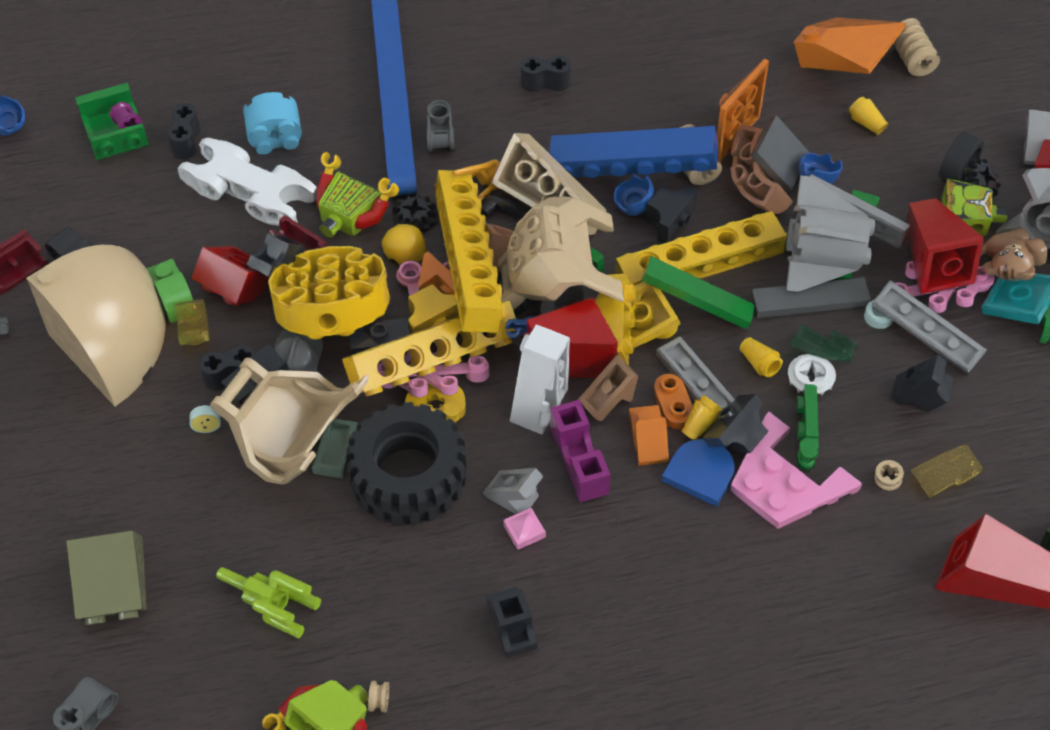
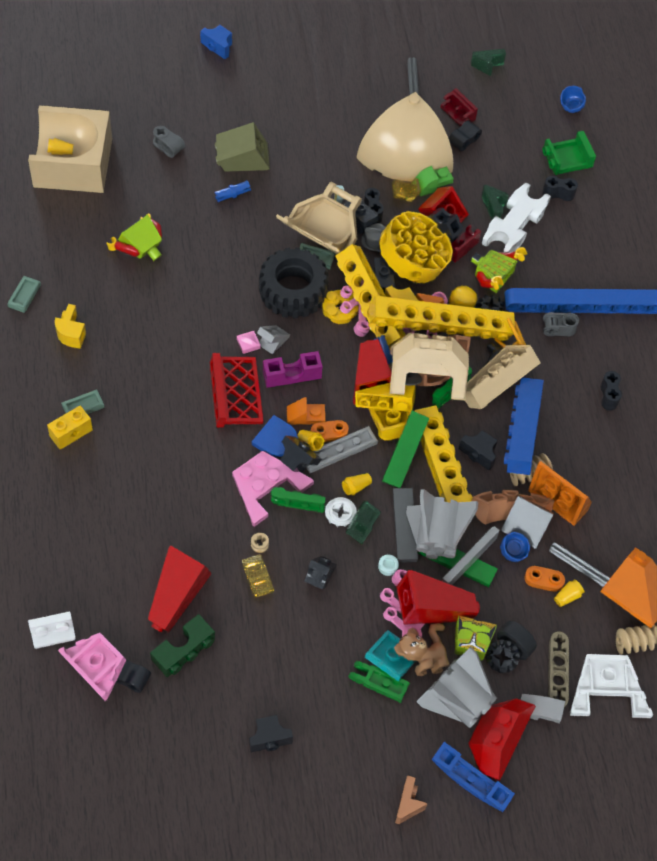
camera: 90 degrees right, 5 degrees up
(124, 116) = (568, 157): magenta bush -> none
(202, 585) = (232, 191): none -> blue pin
(211, 213) = (494, 200): none -> clear green slope
(271, 595) = (218, 219): lime plant -> none
(272, 122) = (560, 229): medium azure brick -> none
(378, 696) = (153, 263): tan bush -> none
(512, 621) = (187, 325): black brick -> none
(540, 378) = (342, 350): white wedge -> none
(611, 386) = (337, 393): medium nougat slope -> none
(629, 555) = (220, 395): none -> red fence
(633, 195) = (495, 427): blue hair -> none
(821, 105) = (579, 564): none -> axle
(850, 143) = (545, 579): none -> orange plate
(929, 327) = (369, 587): light grey tile -> none
(972, 80) = (609, 677): none -> white wing
(1014, 128) = (555, 670): none -> dark tan beam

